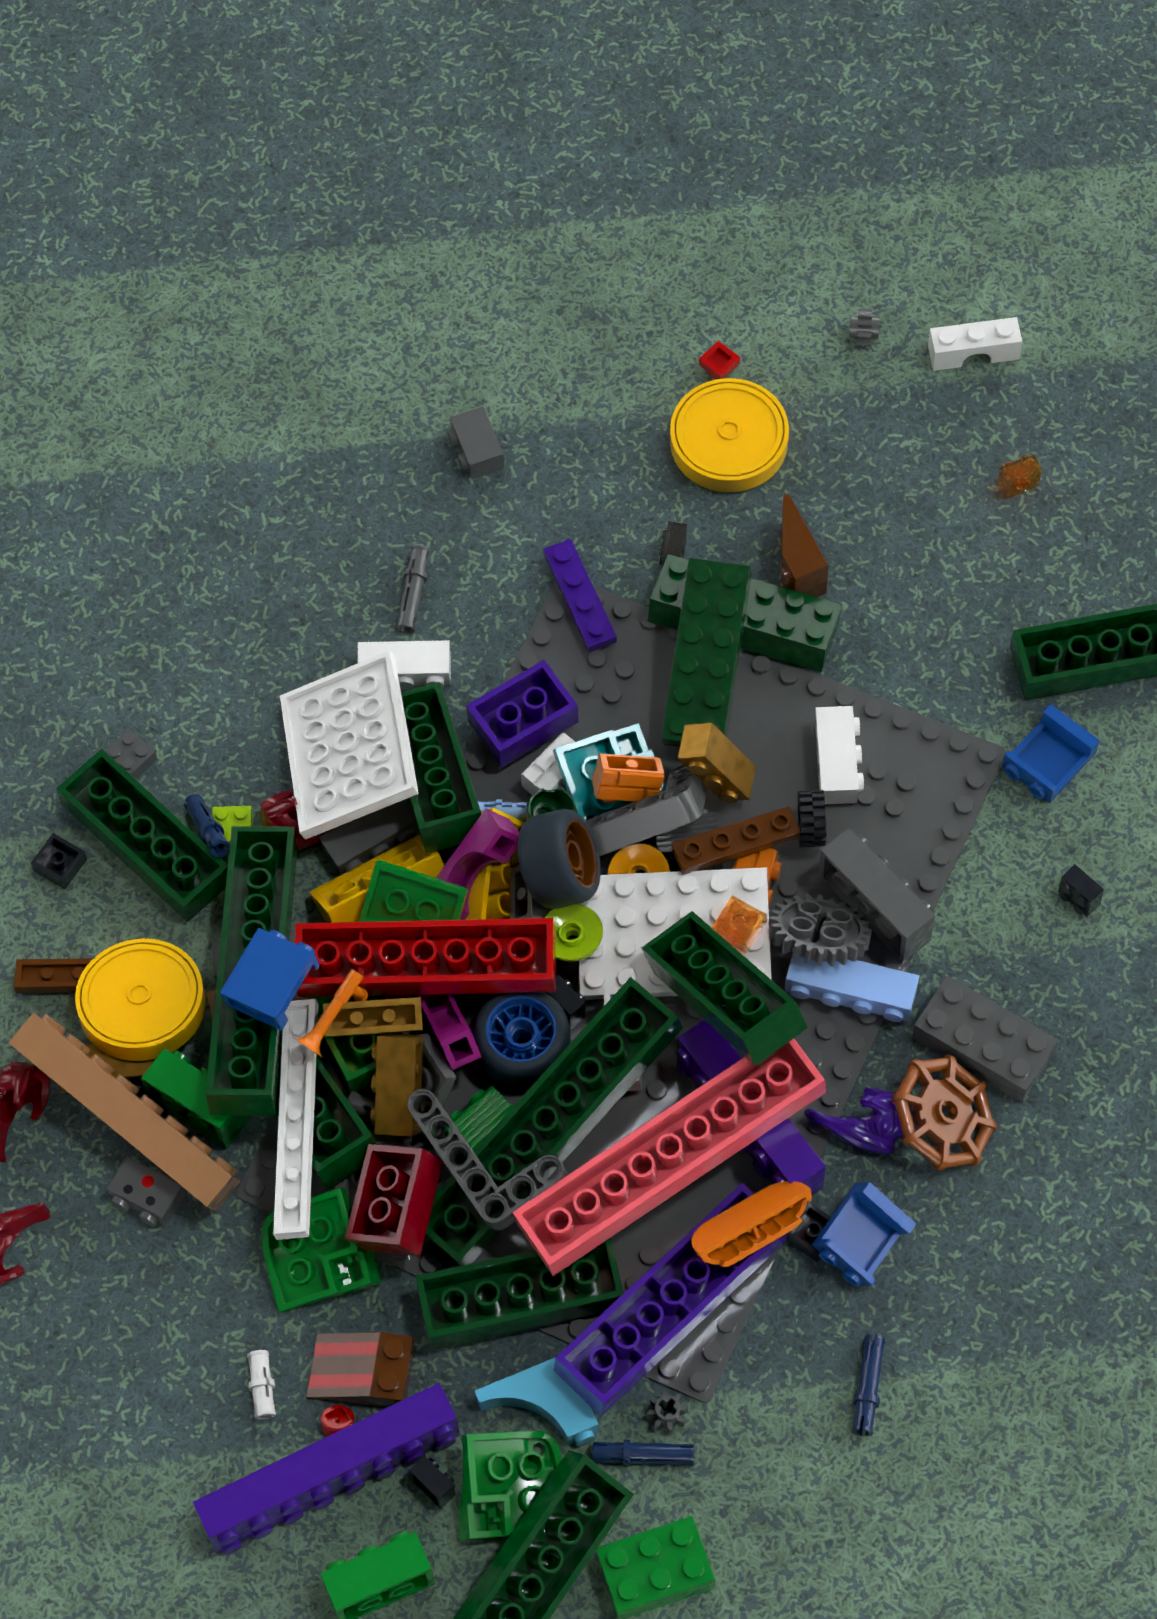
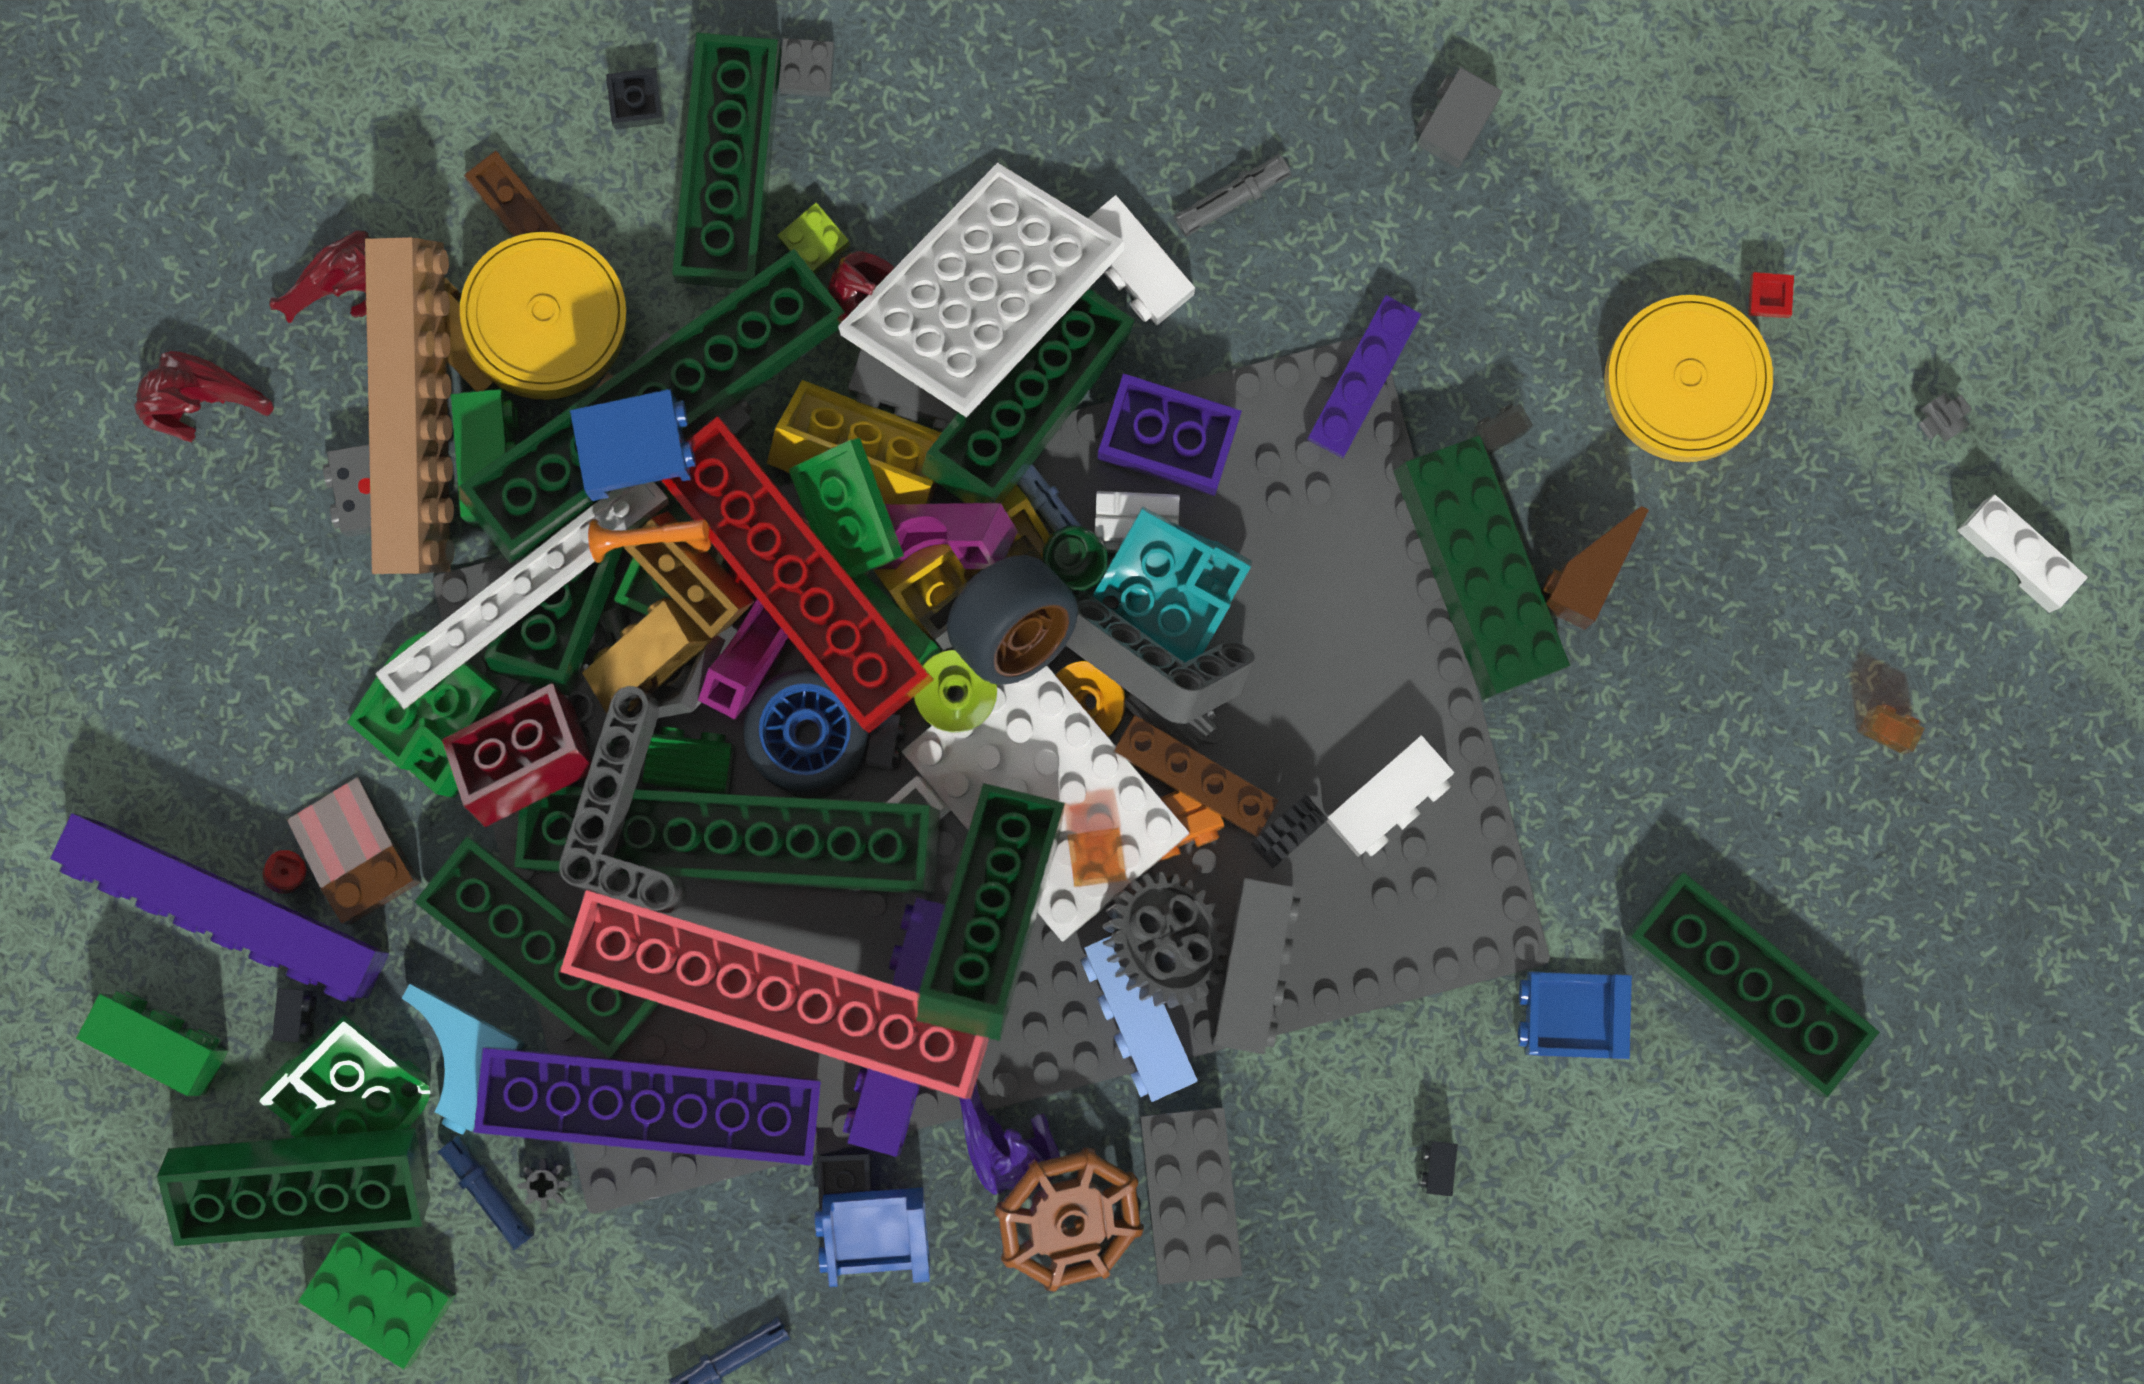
camera: 50 degrees right, 20 degrees up
(209, 830) = (778, 229): dark blue pin -> none
(261, 1385) = (262, 767): white pin -> none
(627, 777) = (1168, 612): orange brick -> none
(707, 647) = (1384, 576): dark green brick -> none
(717, 762) = (1263, 688): pearl gold brick -> none
(751, 1223) = (774, 1128): orange brick -> none

